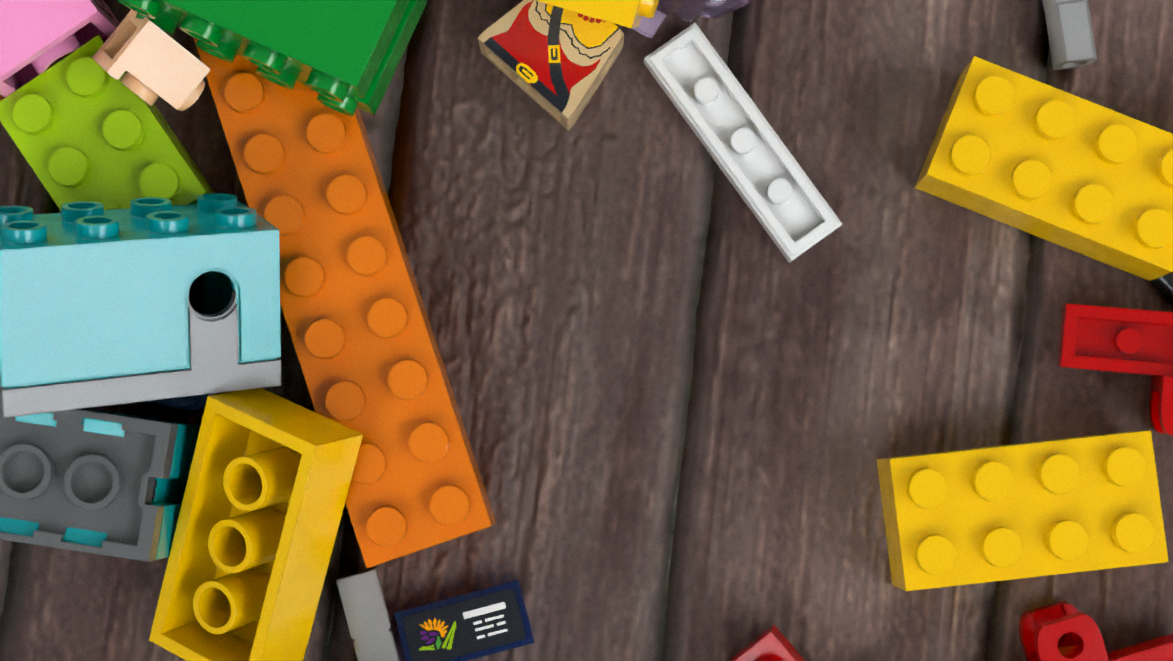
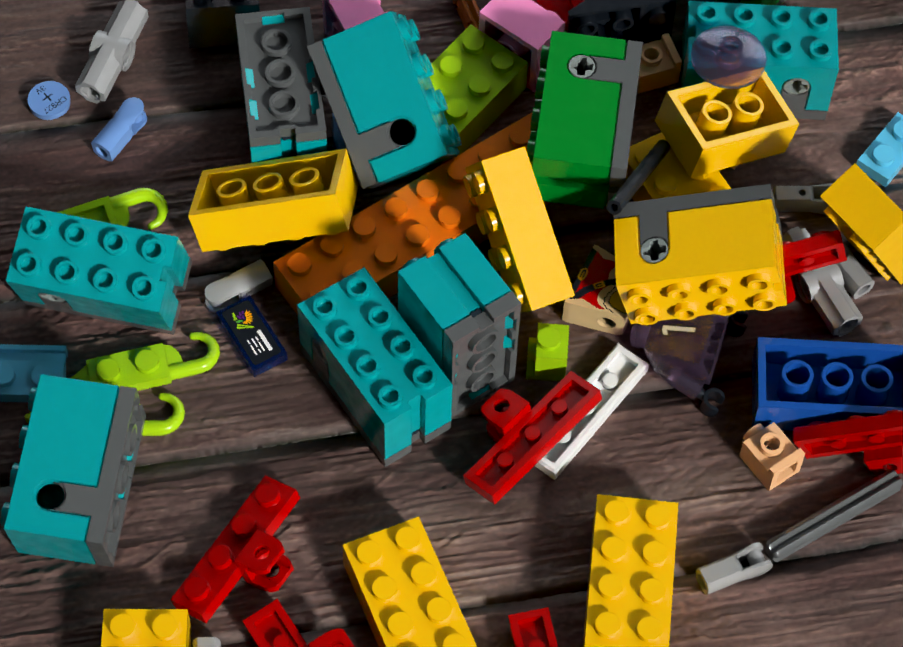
camera: 70 degrees right, 25 degrees down
(153, 63) = (518, 87): light nougat brick -> none
(441, 152) = (518, 229): none -> yellow brick
(598, 300) = (462, 318): none -> piece
(608, 456) = (375, 366): none -> teal piece
(638, 170) = (548, 352): none -> lime brick
(778, 245) = (526, 433): none -> red plate

